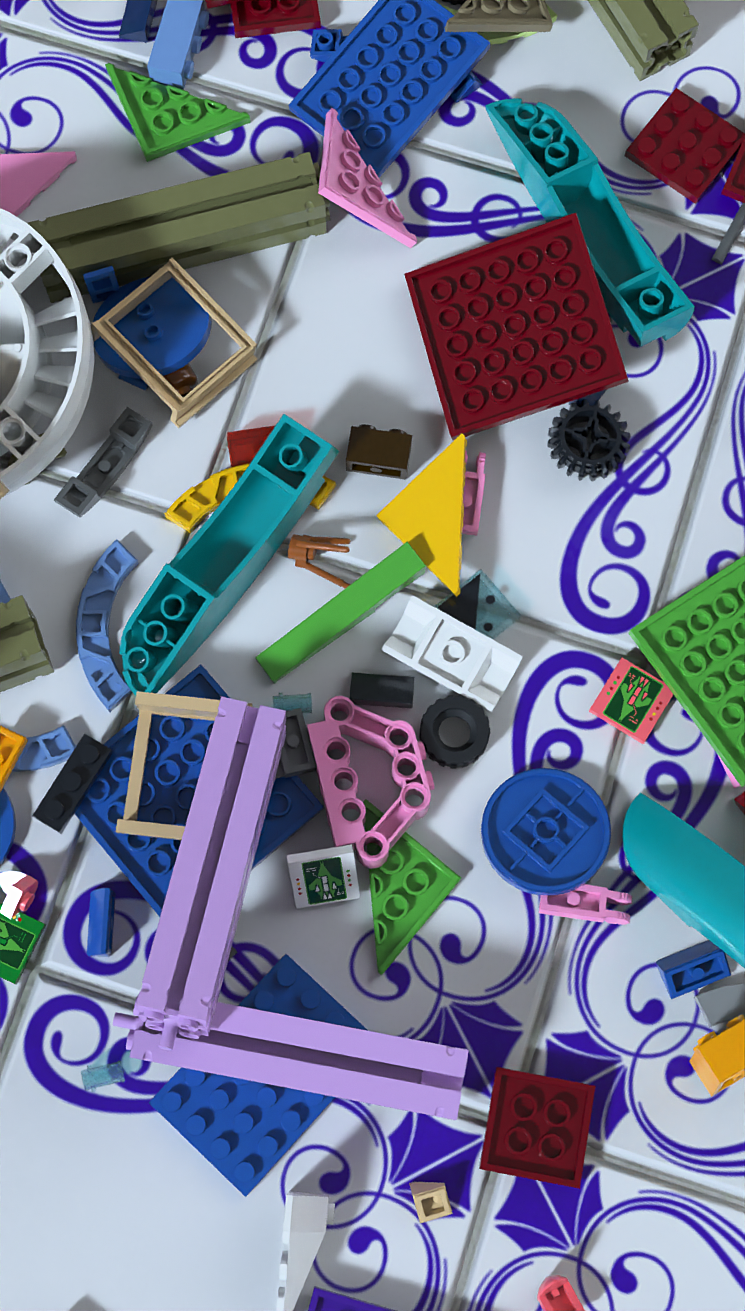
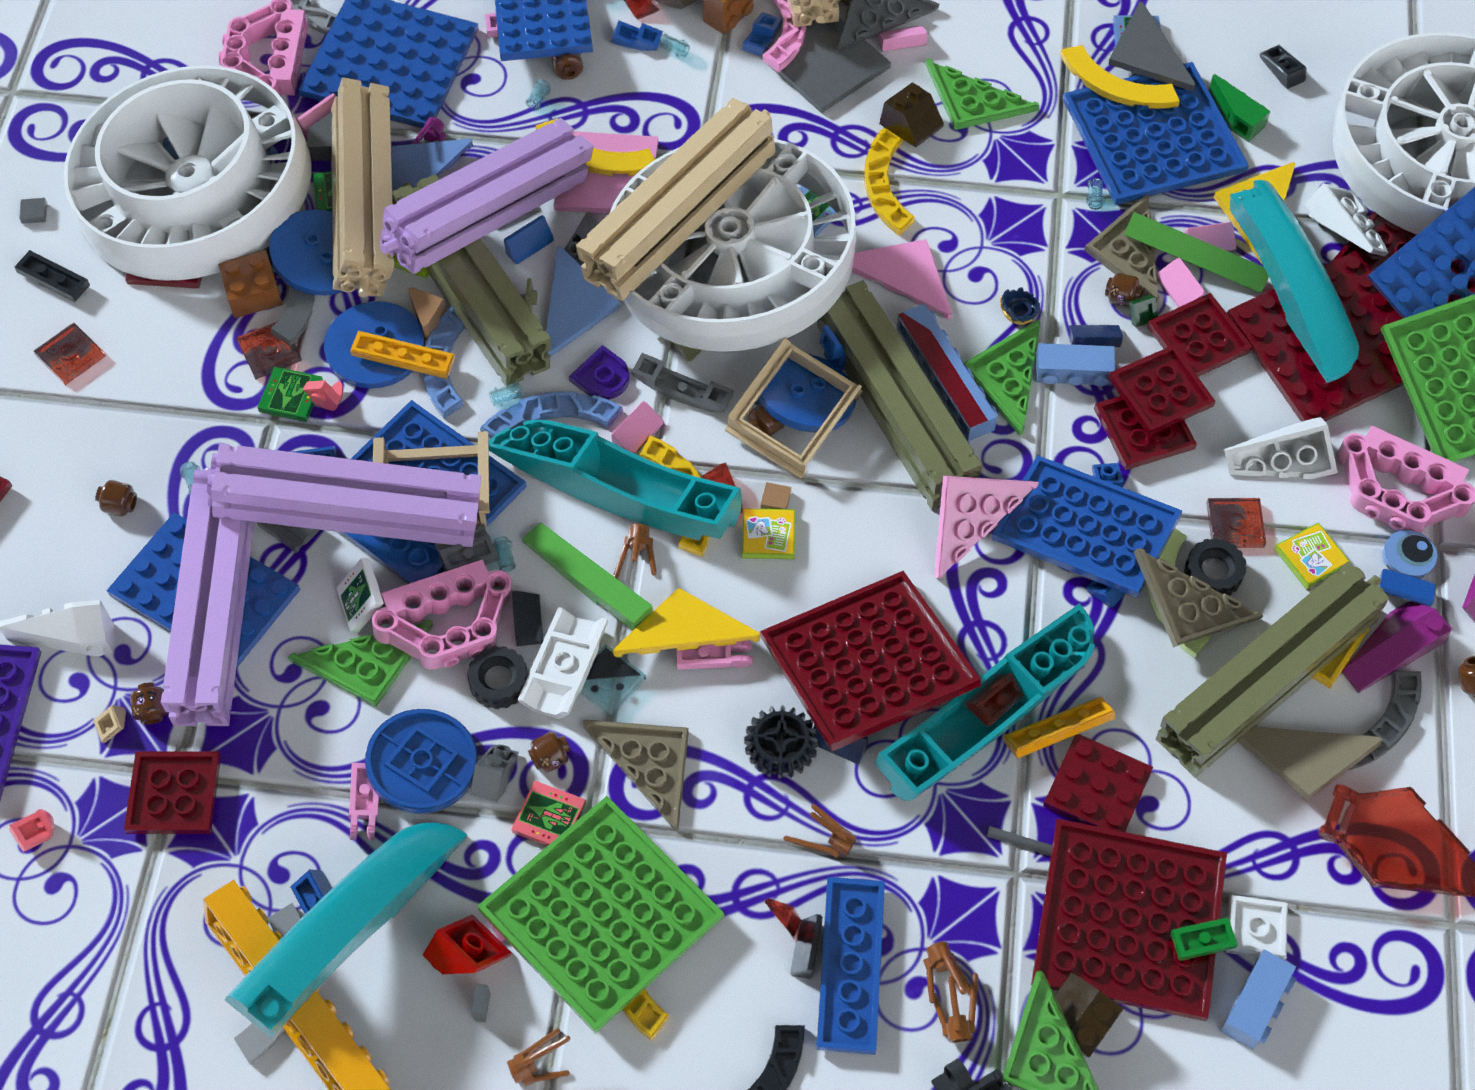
camera: 80 degrees right, 15 degrees down
(63, 556) = (602, 374): none -> dark purple tile
(66, 672) = (505, 394): none -> clear light blue pin
(72, 783) = (414, 411): black plate -> none
(85, 76) = (1019, 306): none -> dark blue hair
(113, 1176) = (116, 498): none -> reddish brown head
(152, 170) = (947, 372): none -> brick
(152, 527) = (637, 428): none -> bright pink slope
(278, 390) = (775, 496): none -> medium nougat tile
(325, 406) = (768, 534): none -> tile
(378, 451) = (734, 578): dark brown brick -> none
(417, 1149) = (147, 704): none -> reddish brown head
(559, 687) = (549, 752): none -> reddish brown head
(575, 750) = (493, 772): none -> dark grey slope
(581, 581) = (650, 758): none -> dark tan tile
(591, 214) = (995, 698): none -> clear red slope
(616, 159) = (1059, 727): none -> light orange tile
(708, 404) = (840, 839): none -> dark orange plant

